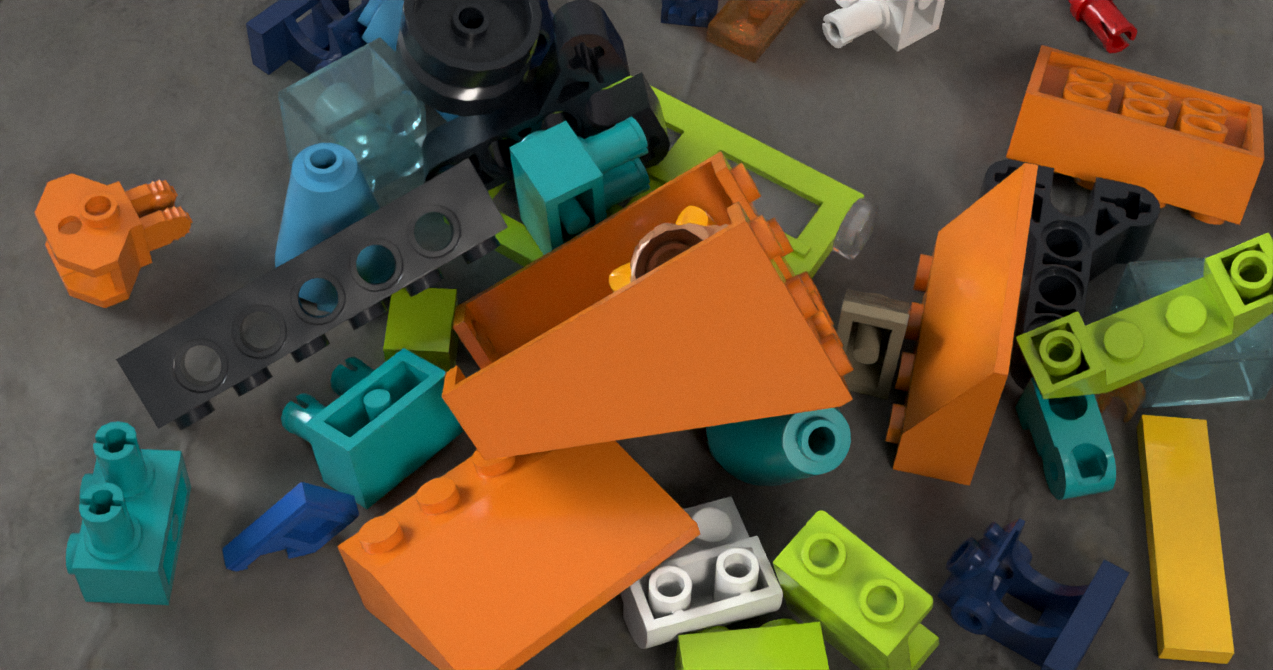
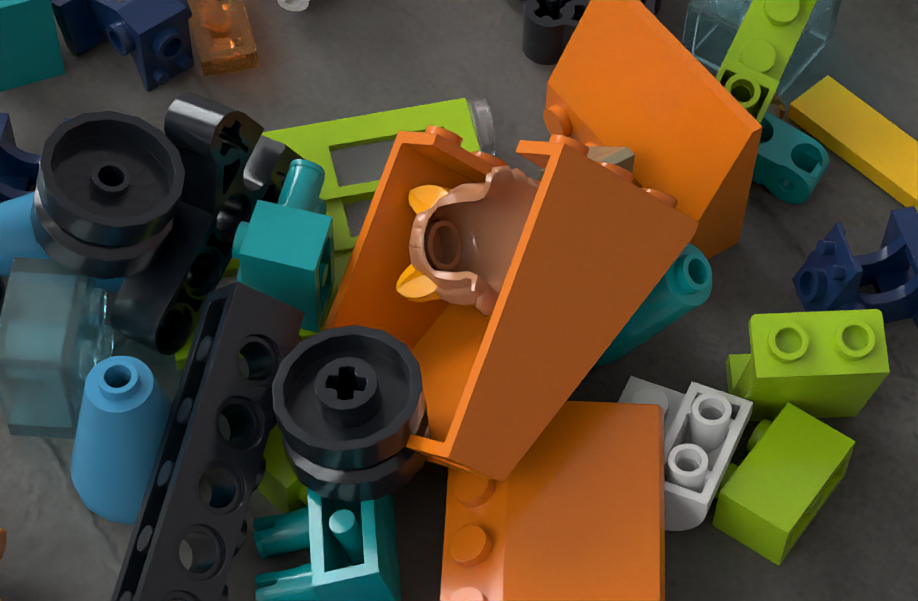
camera: 45 degrees left, 0 degrees up
(444, 309) = (349, 411): none -> black wheel

